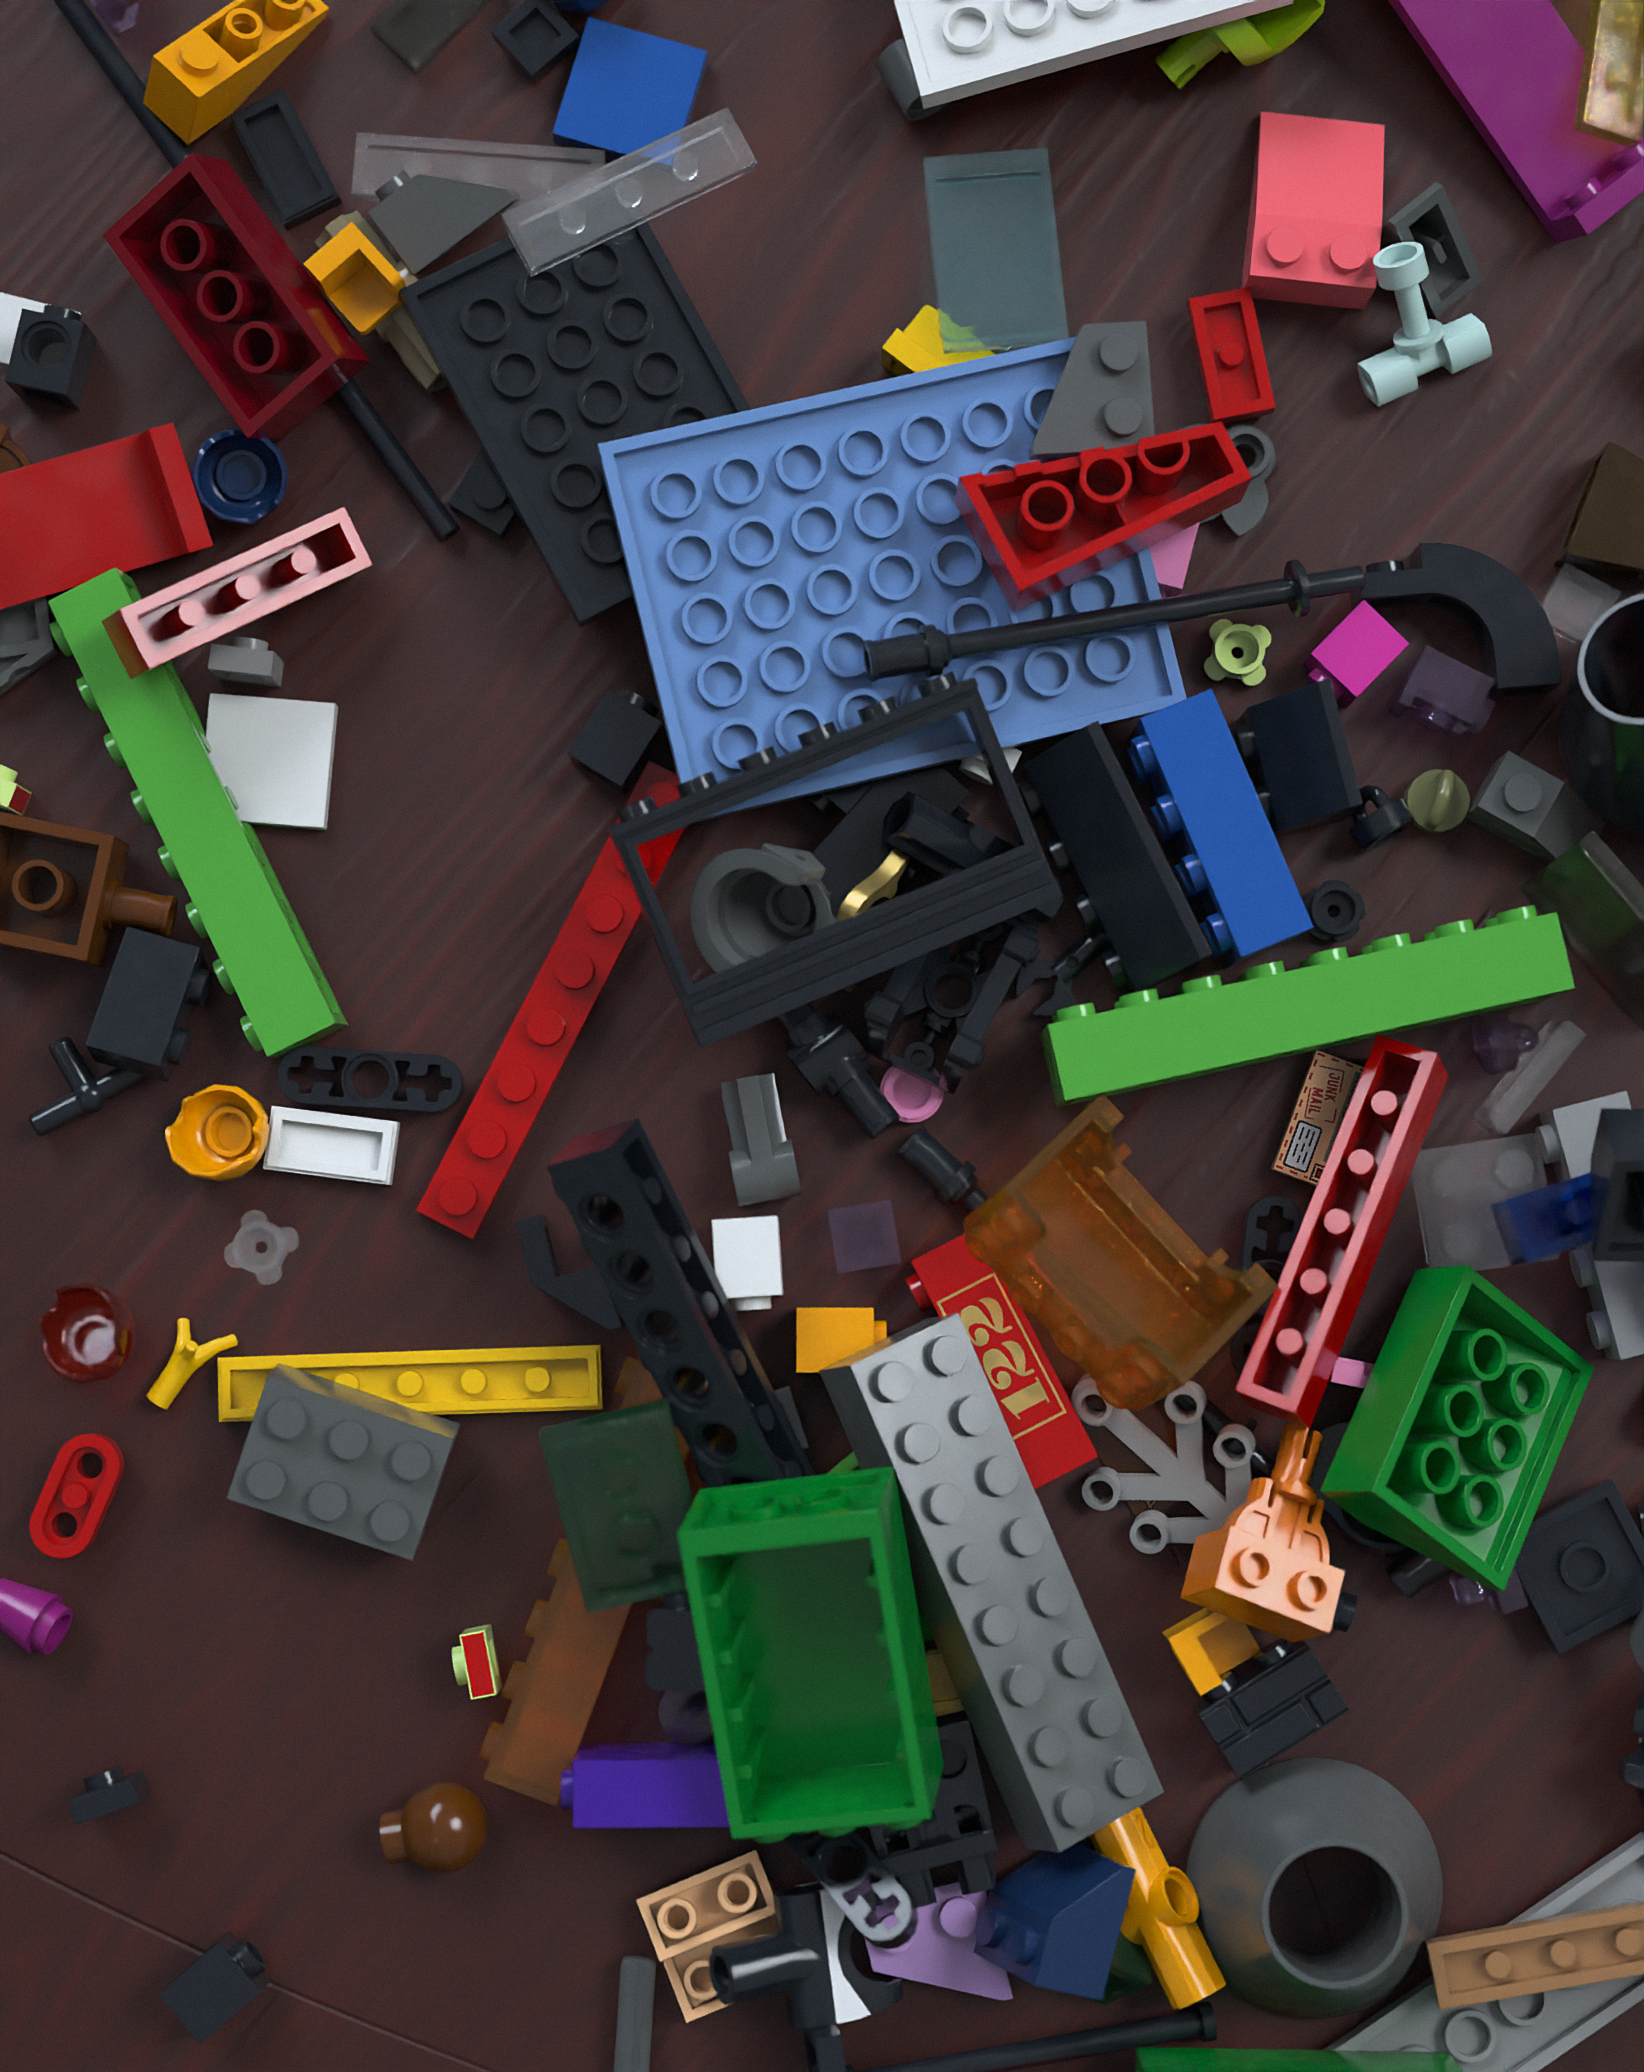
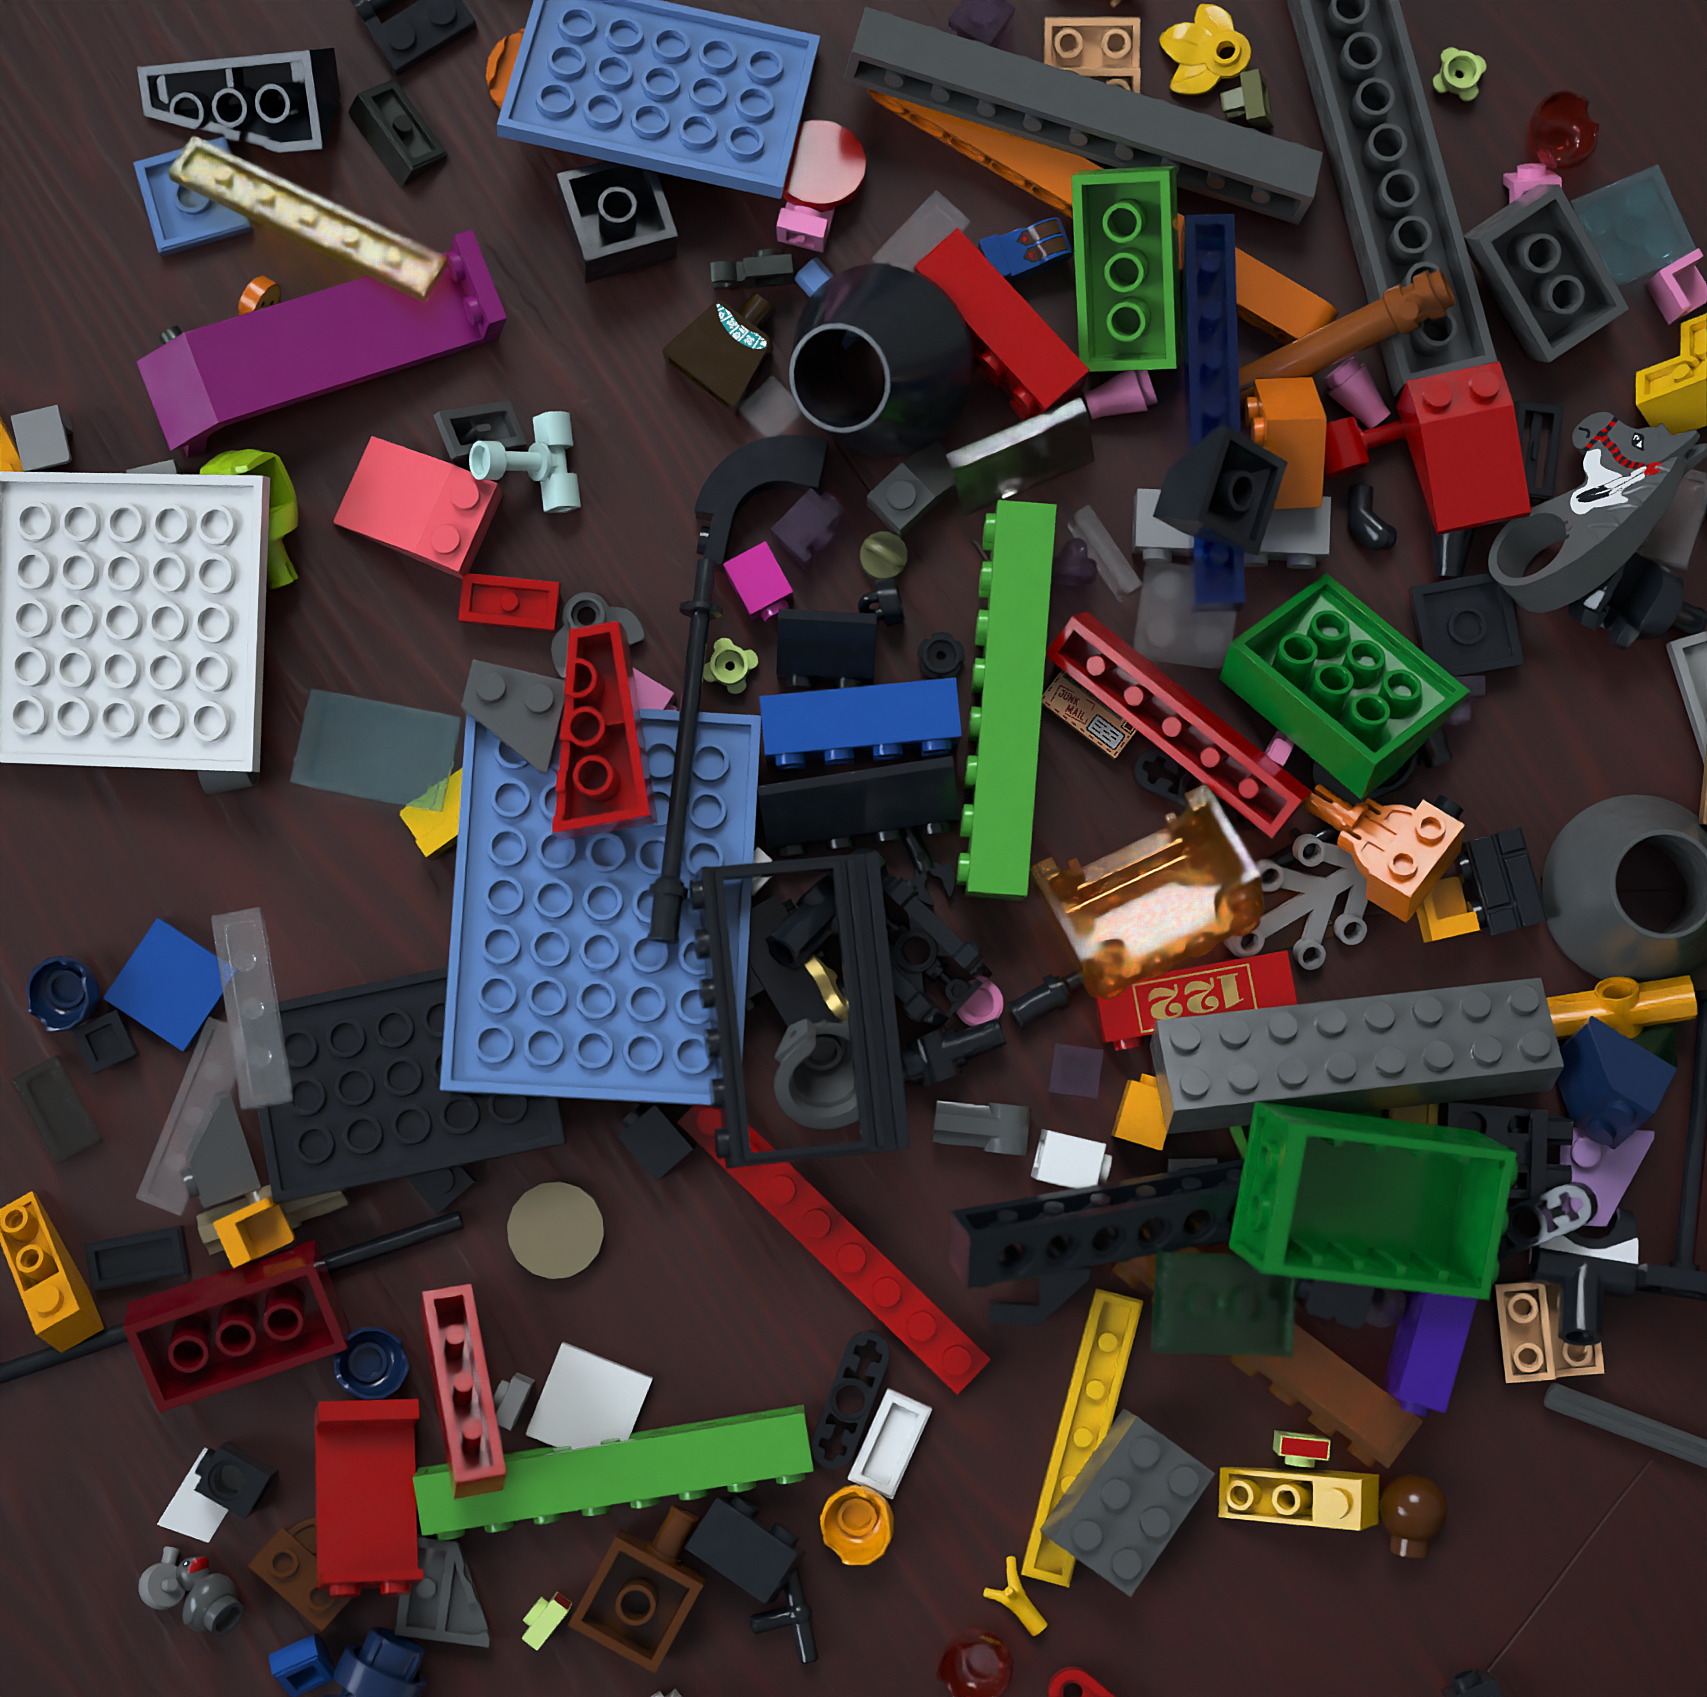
camera: 75 degrees left, 0 degrees up
(244, 1253) = (949, 1532): clear plate -> none
(416, 1680) = (1300, 1497): none -> yellow slope
(471, 653) = (556, 1230): none -> dark tan tile

